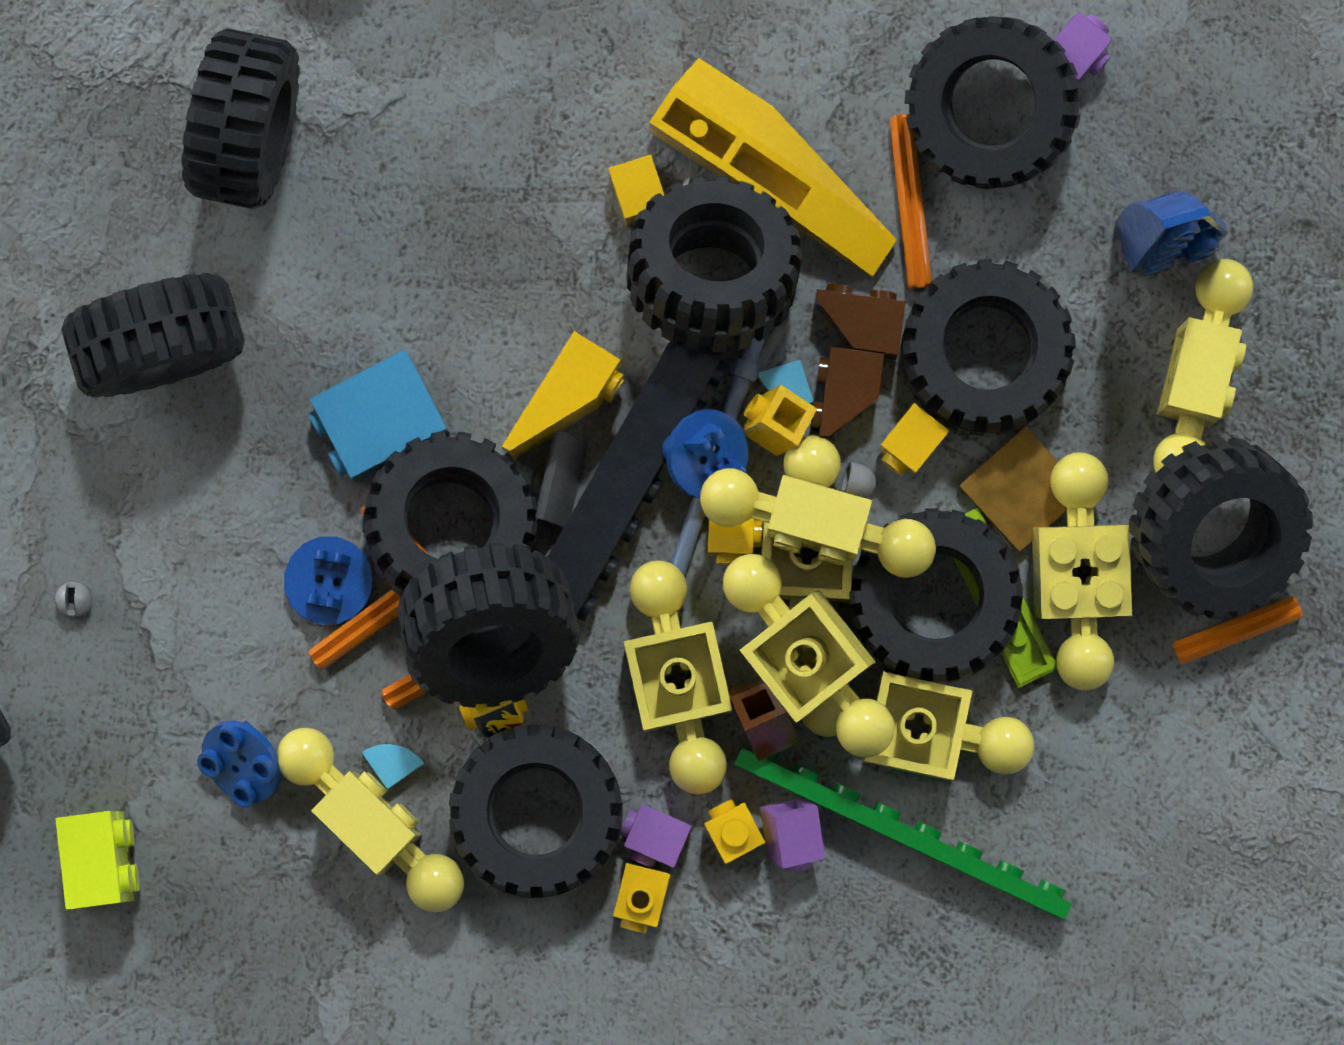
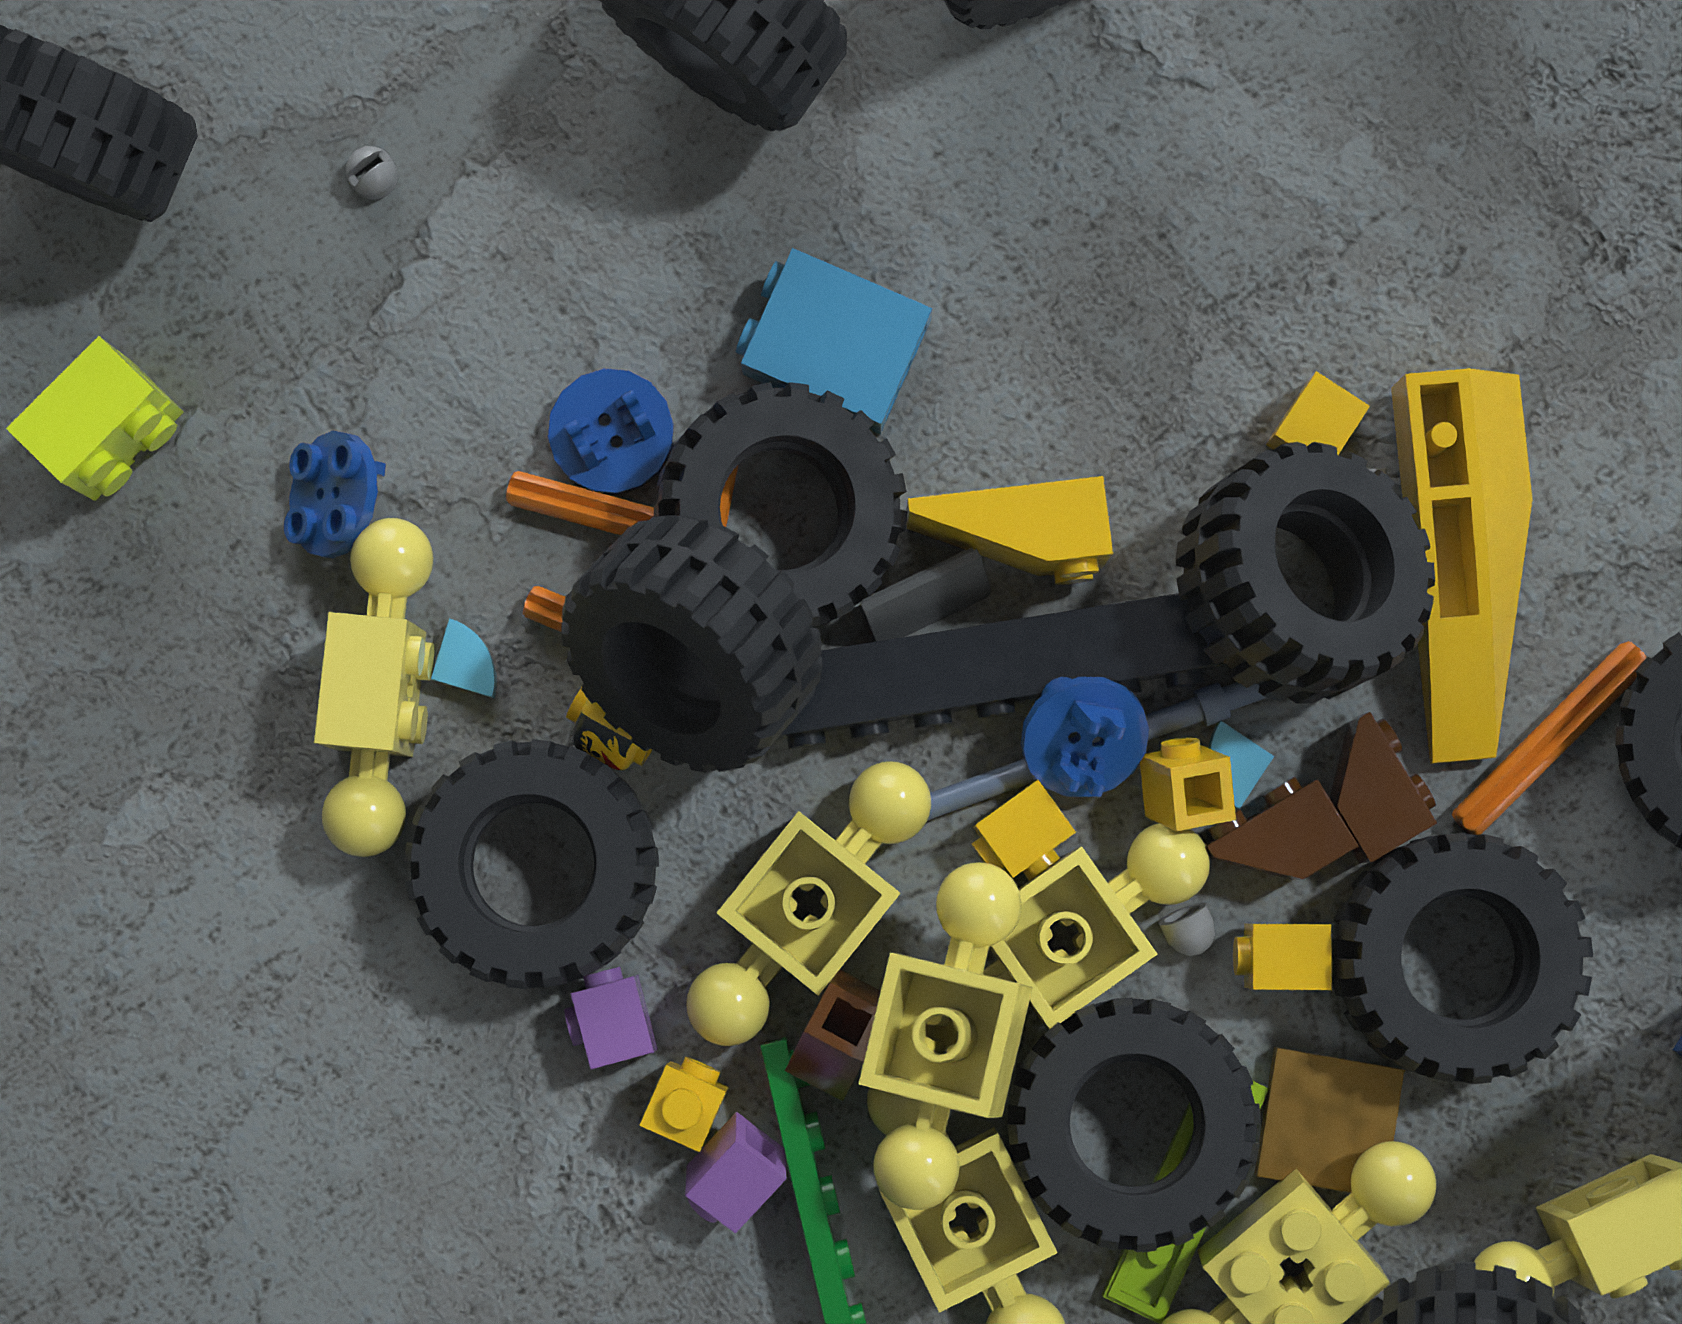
camera: 50 degrees right, 0 degrees up
(641, 897) = (530, 1057): yellow brick -> none
(818, 520) = (1112, 926): light yellow brick -> none

